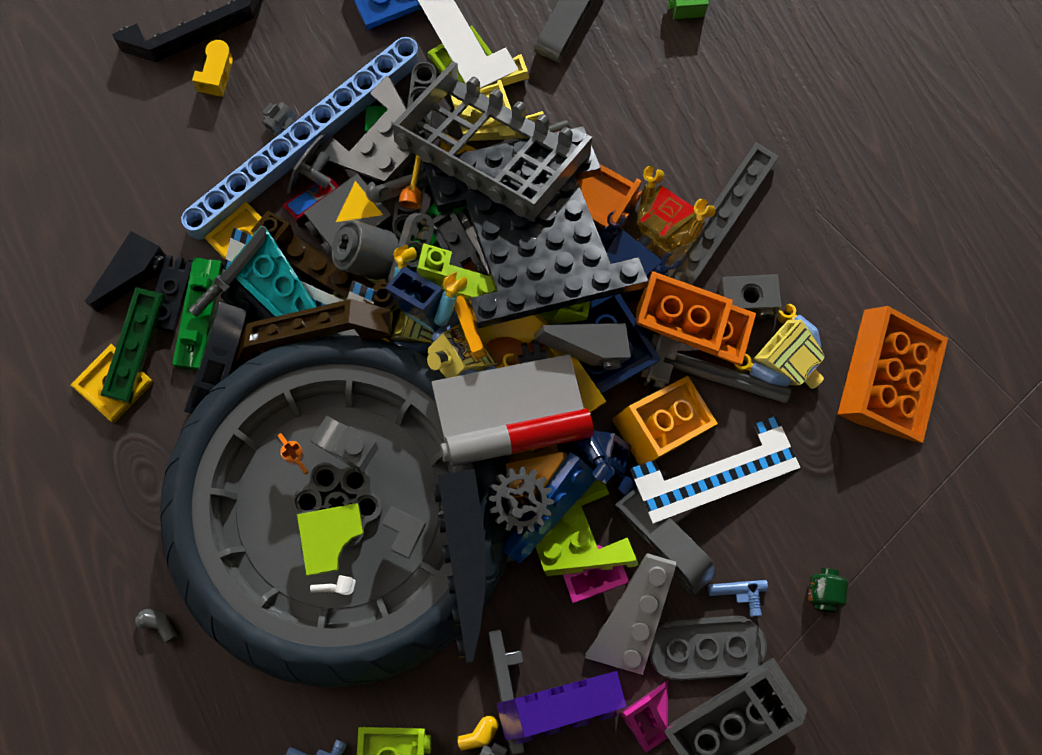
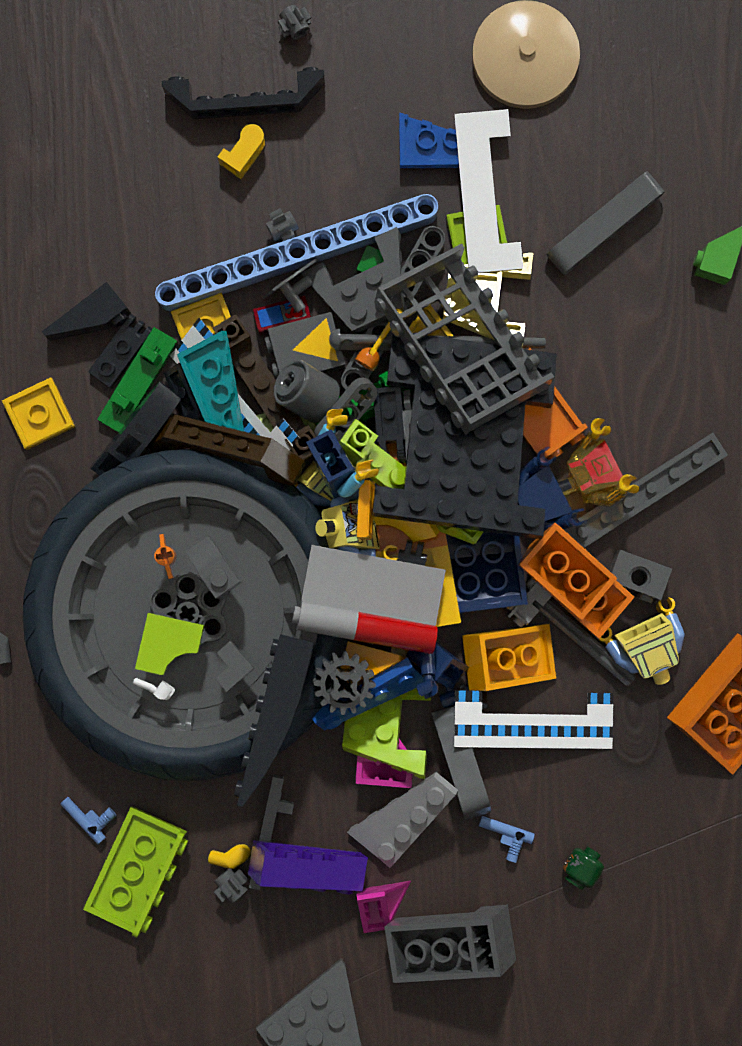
camera: 30 degrees right, 10 degrees up
(133, 345) = (69, 389): dark green tile -> none
(222, 282) = (170, 365): dark grey sword -> none
(590, 343) = (469, 568): dark grey slope -> none
(707, 648) = (456, 869): dark grey tile -> none

